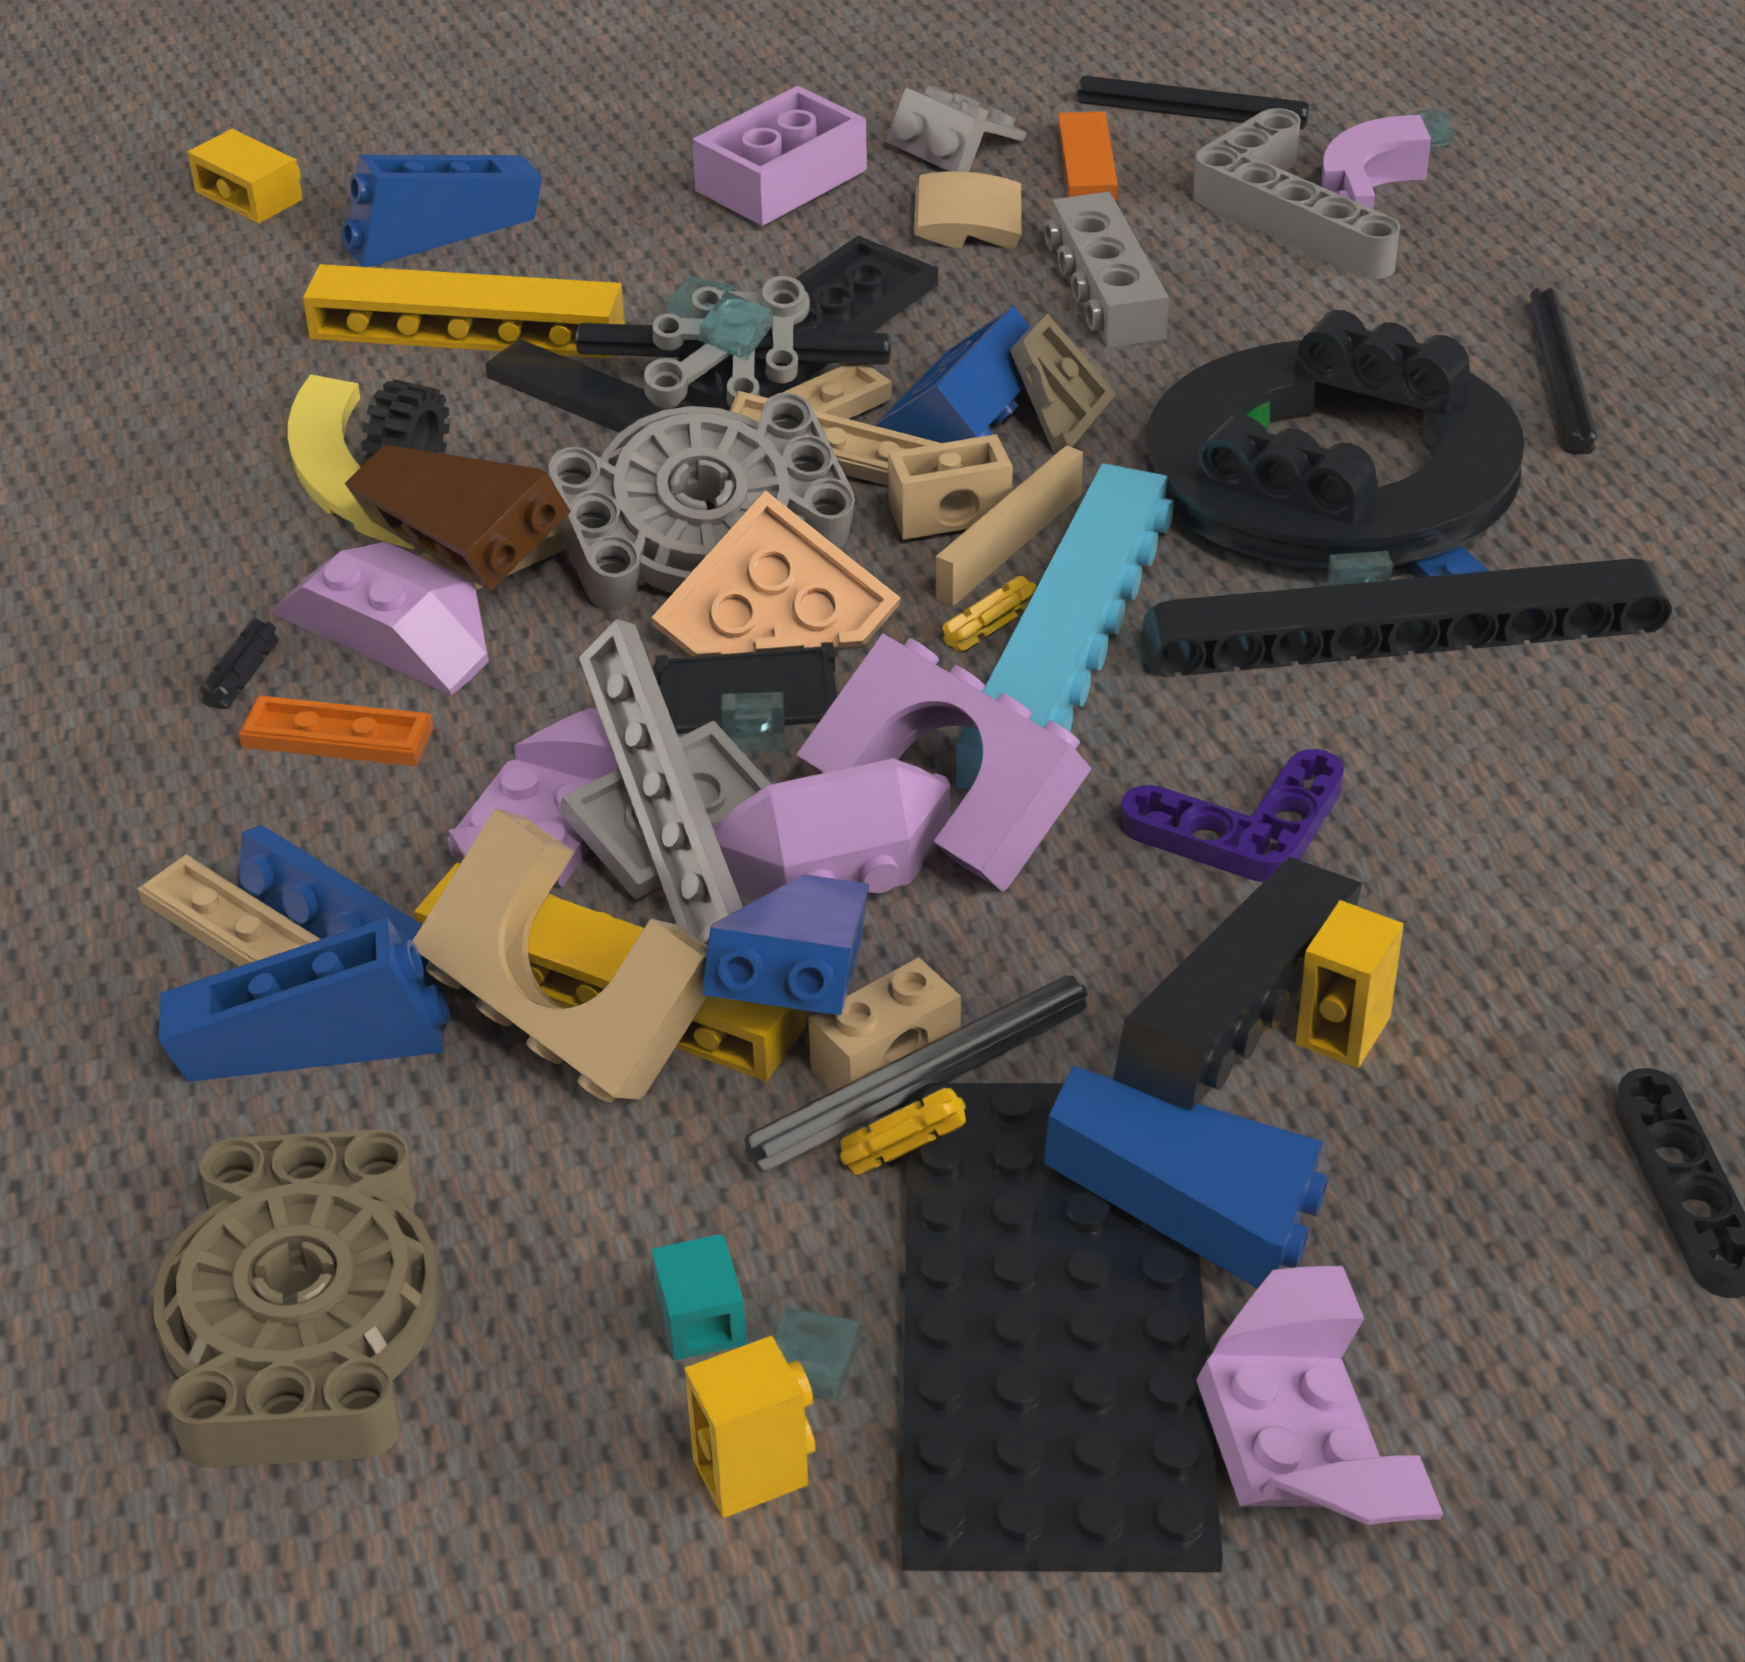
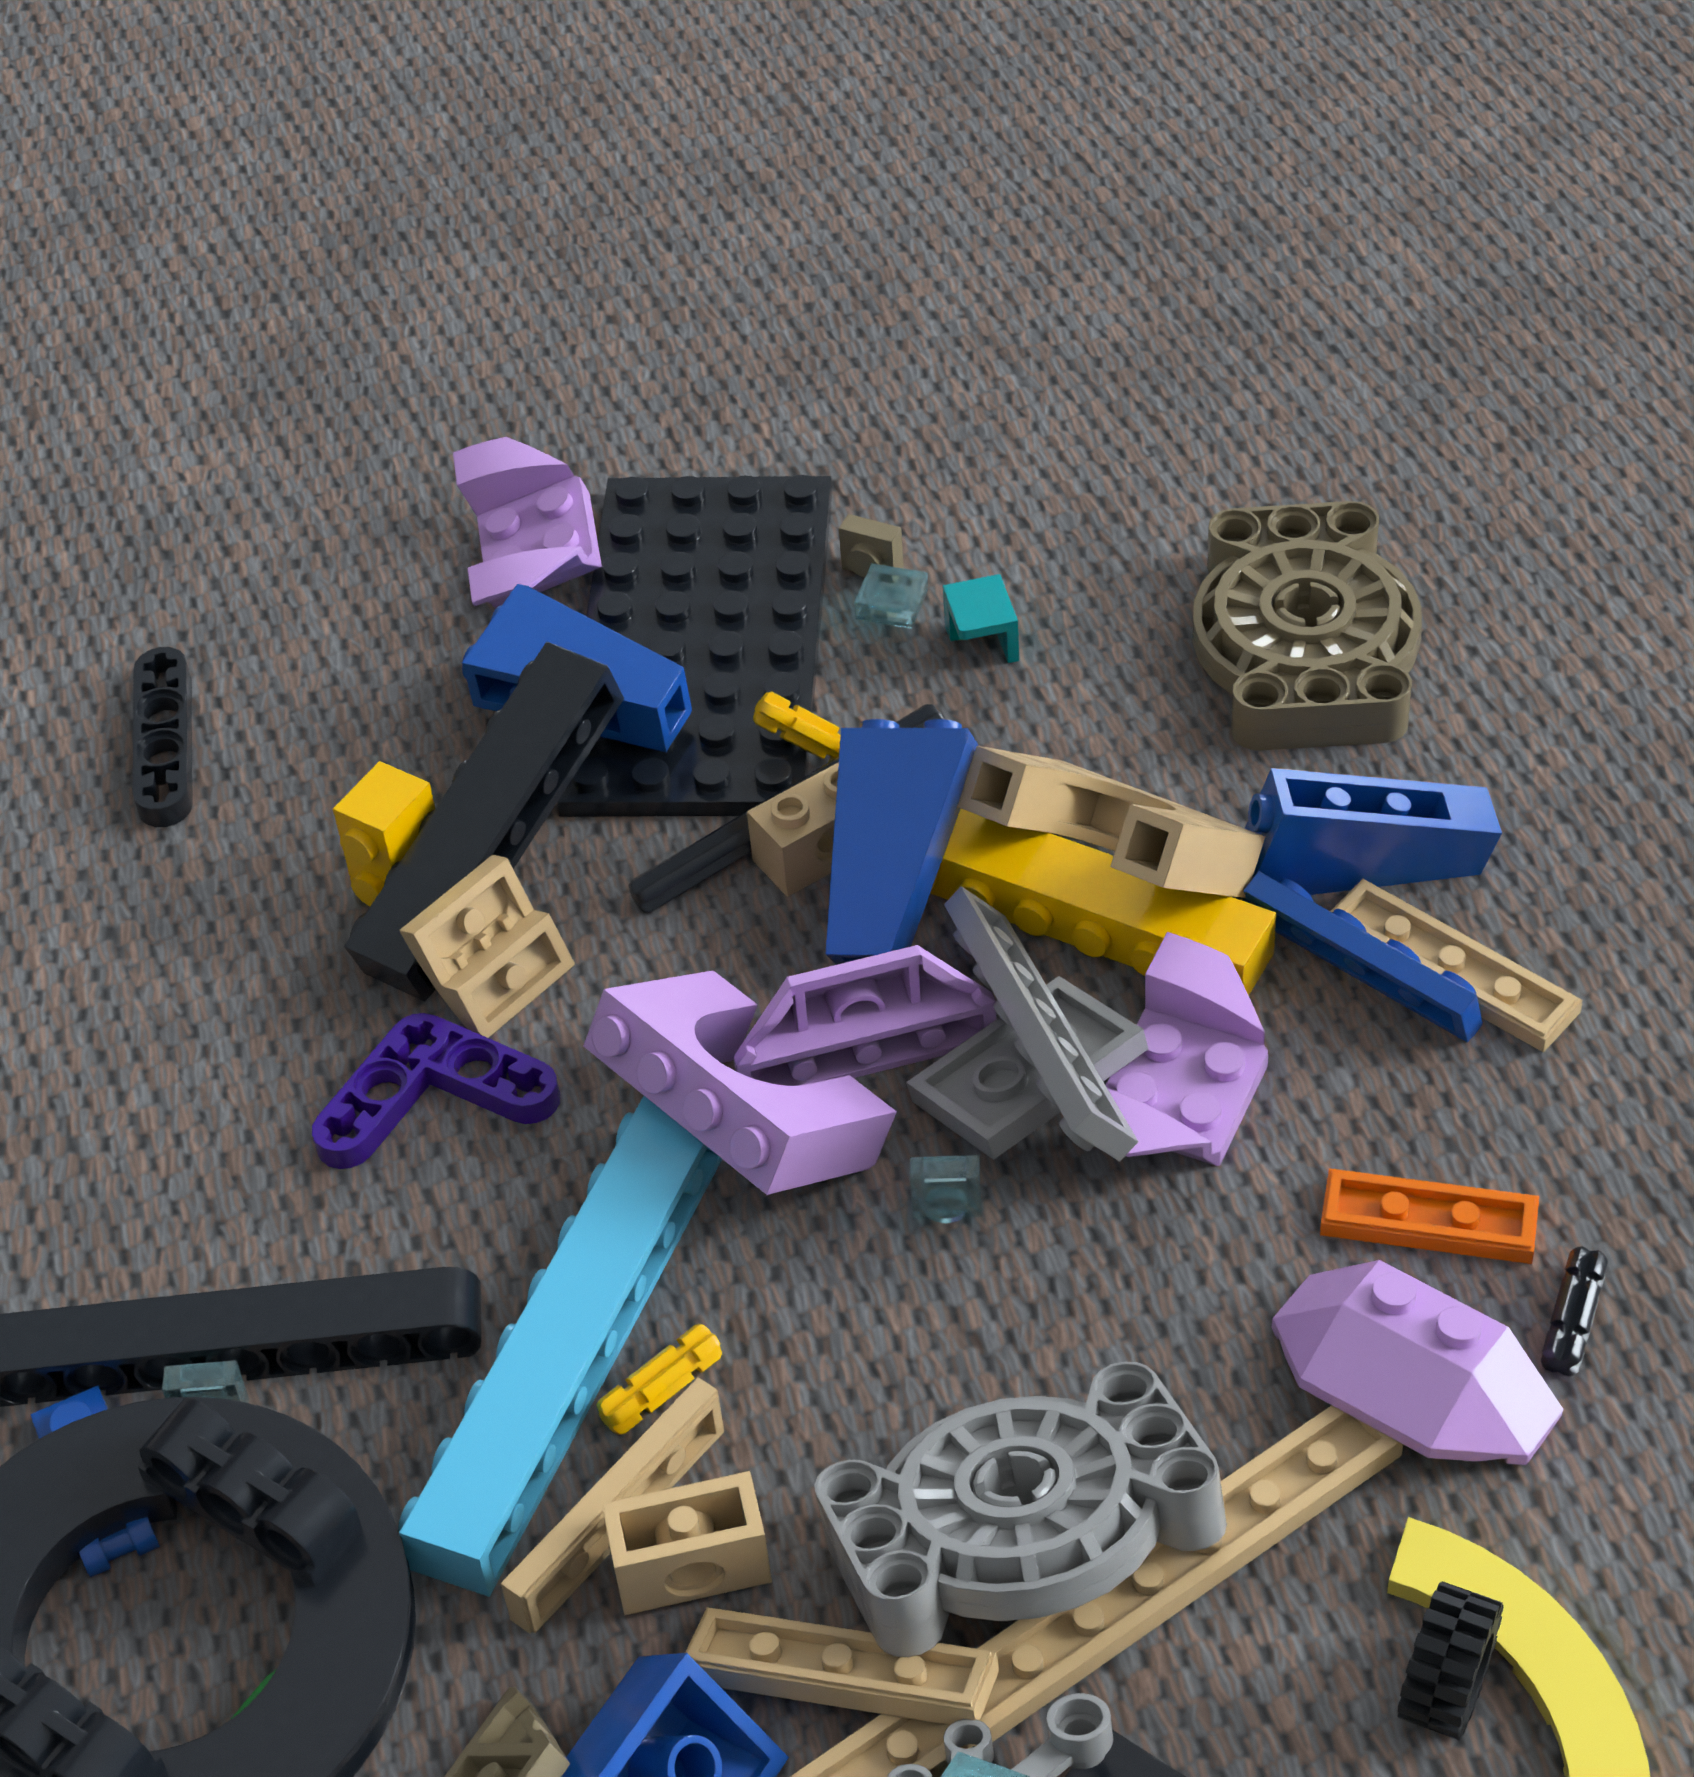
camera: 175 degrees left, 5 degrees up
(459, 508) = (1340, 1441): reddish brown slope -> none
(696, 683) = (998, 1276): black door -> none
(749, 1425) = (937, 501): yellow brick -> none
(774, 589) = (922, 1368): light nougat plate -> none
(844, 1412) = (869, 542): none -> dark tan plate
(1213, 893) = (487, 947): none -> tan slope

